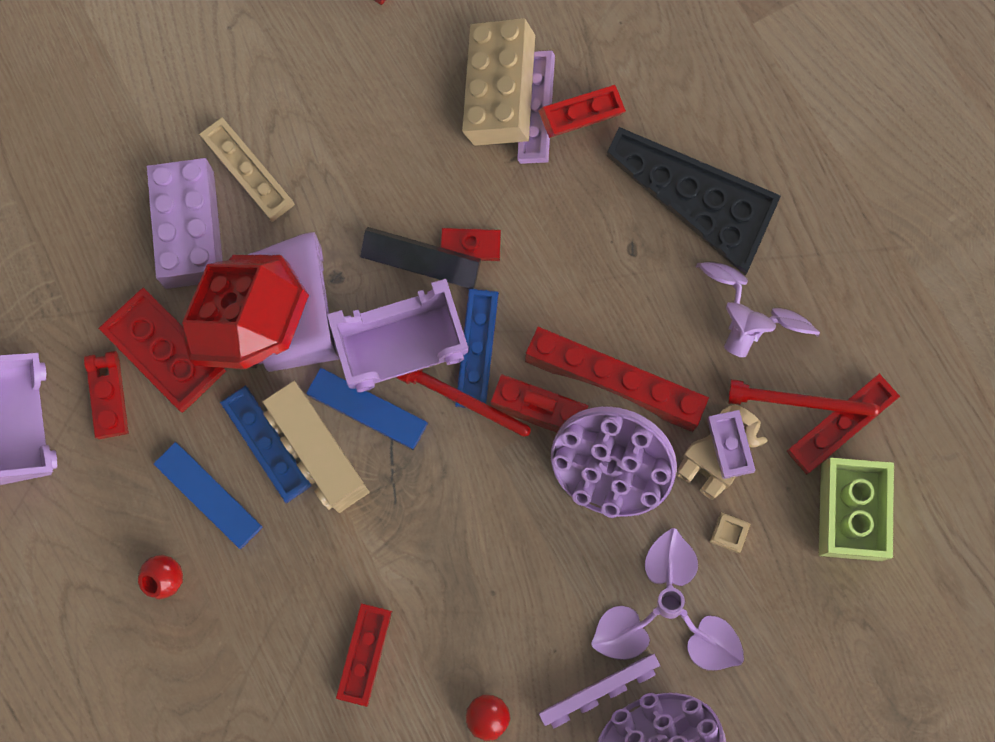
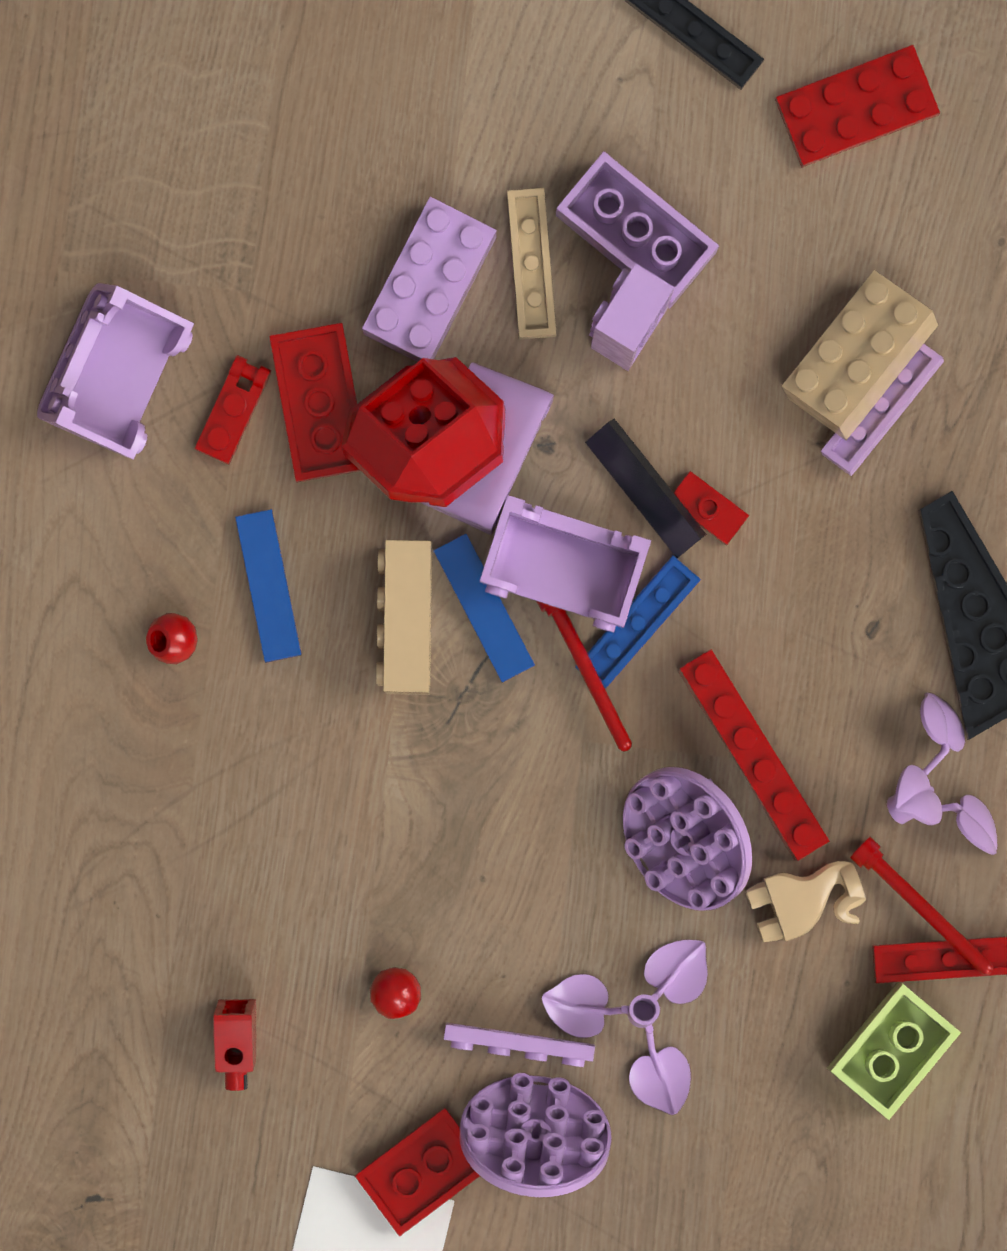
camera: 30 degrees right, 10 degrees up
(265, 444) = (359, 573): blue tile -> none
(300, 101) = (635, 225): none -> lavender brick
(329, 144) = (630, 316): none -> lavender brick
(364, 655) = (318, 851): red plate -> none
(534, 403) = (655, 725): red piece -> none
(582, 111) = (925, 447): red plate -> none
(730, 533) = (756, 985): tan tile -> none
(731, 444) = (815, 902): lavender plate -> none

